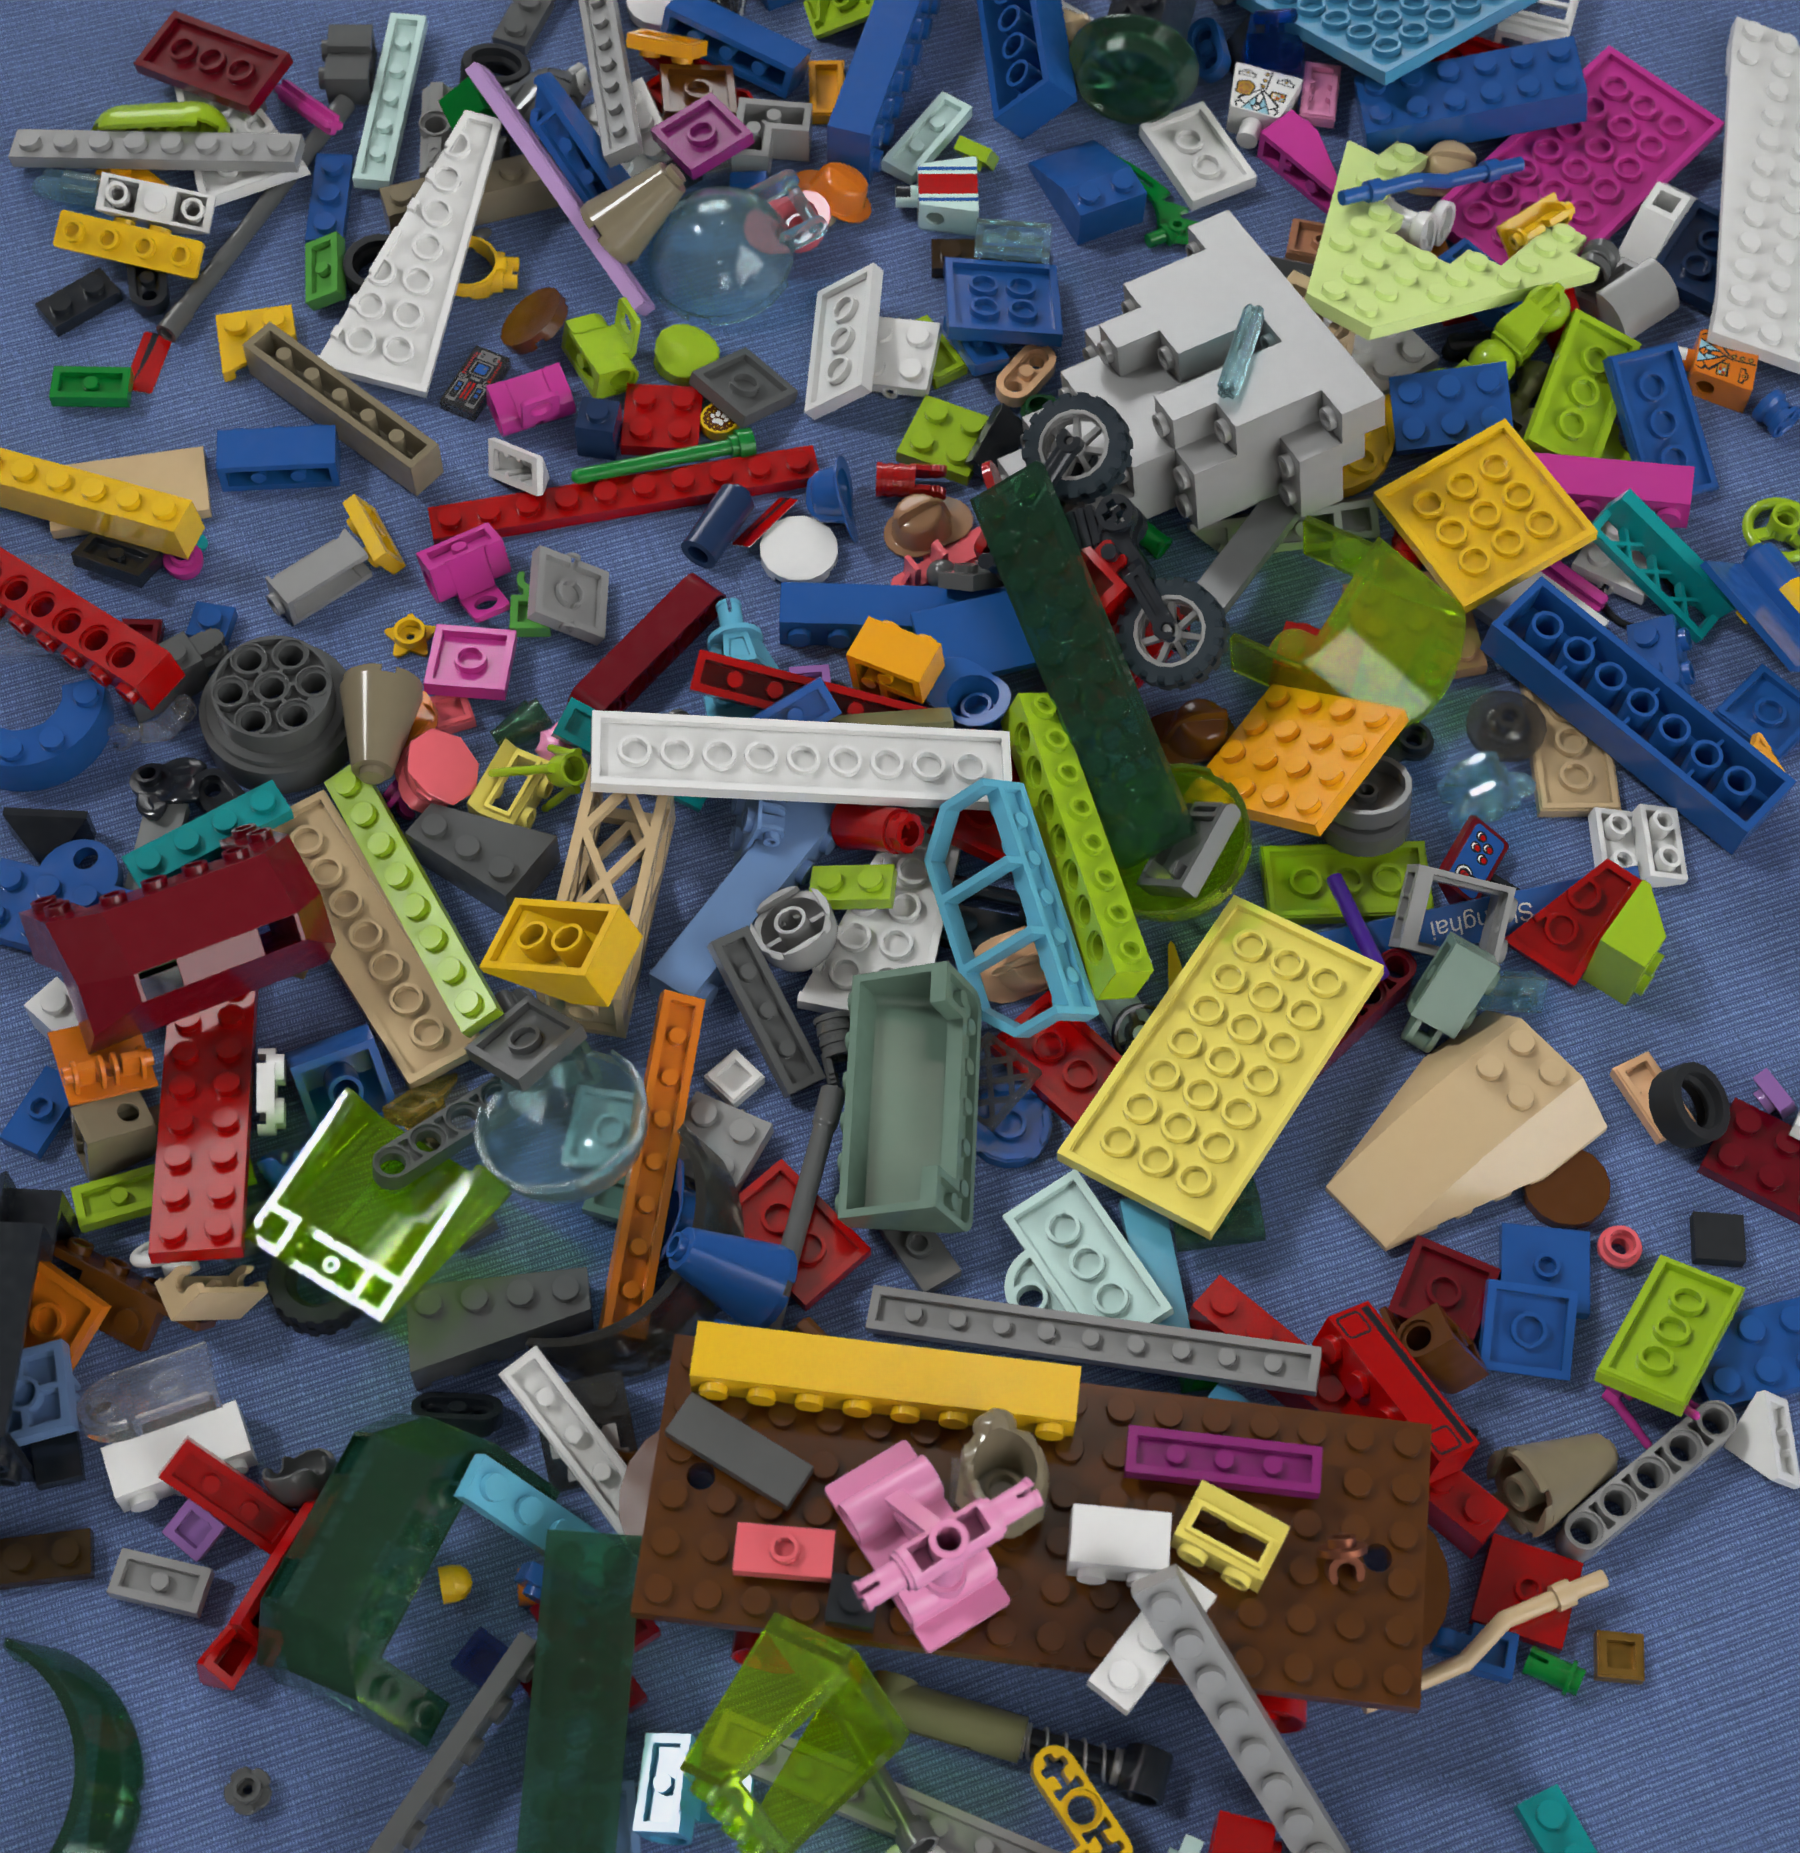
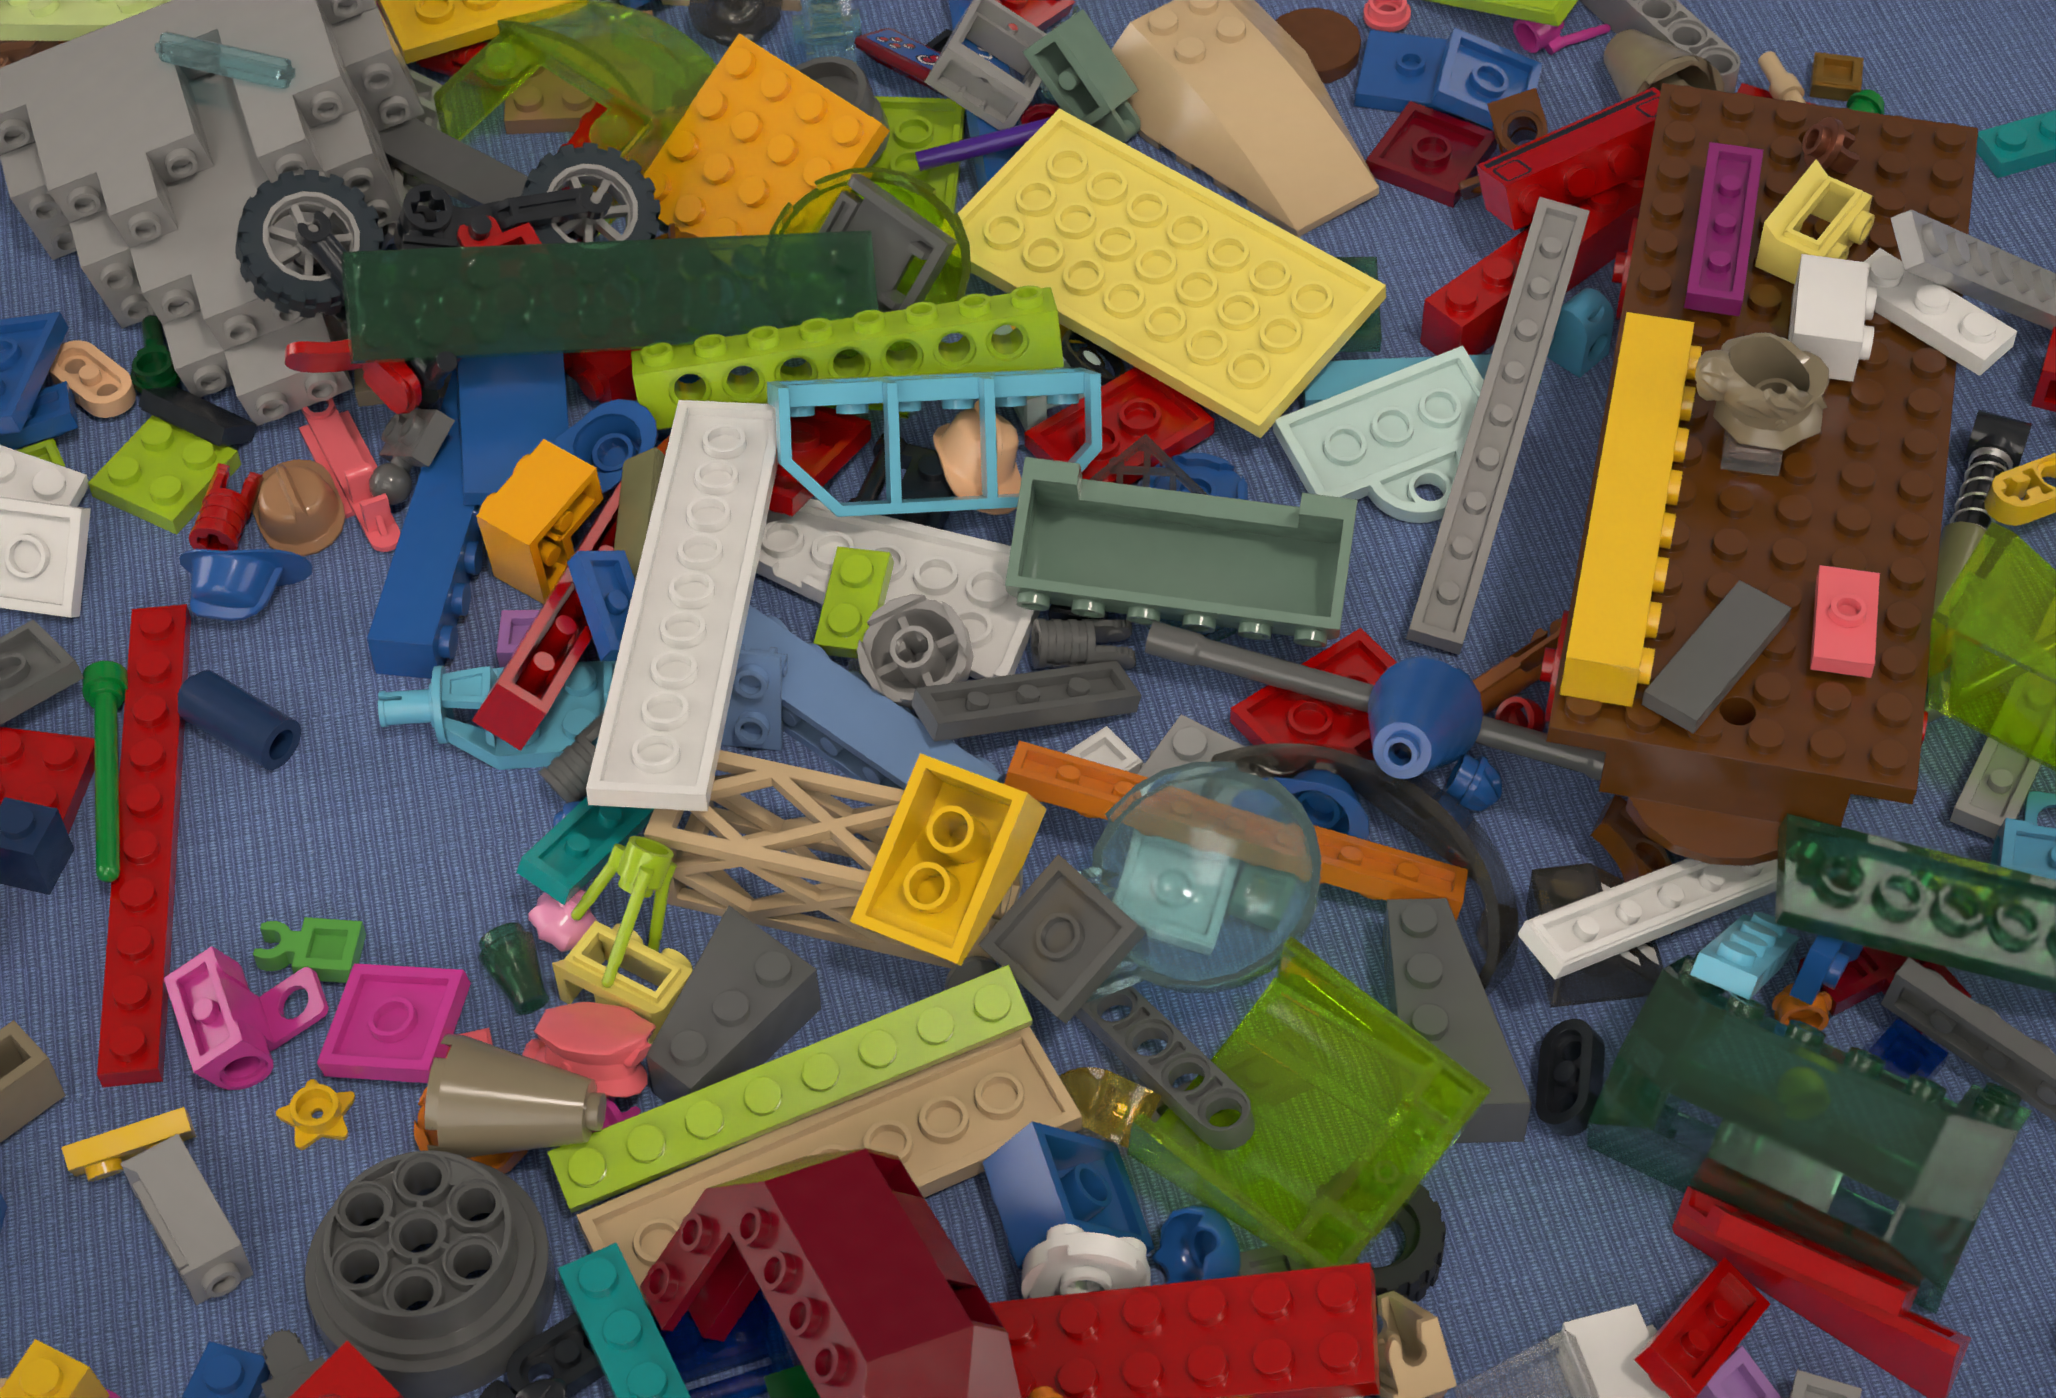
camera: 80 degrees left, 10 degrees down
(300, 1477) = (1665, 1252): dark grey hair -> none
(517, 467) = (70, 942): white slope -> none
(568, 595) = (314, 891): light grey plate -> none
(650, 646) = (425, 812): dark red beam -> none
(716, 424) = (55, 715): tile -> none
(764, 522) = (241, 668): red sticker -> none
(799, 550) = (301, 641): white tile -> none
(844, 1607) = (1904, 561): black plate -> none
(876, 828) = (786, 554): red plant -> none
(922, 1550) = (1868, 463): bright pink plate -> none
(923, 1258) = (1374, 589): dark grey plate -> none

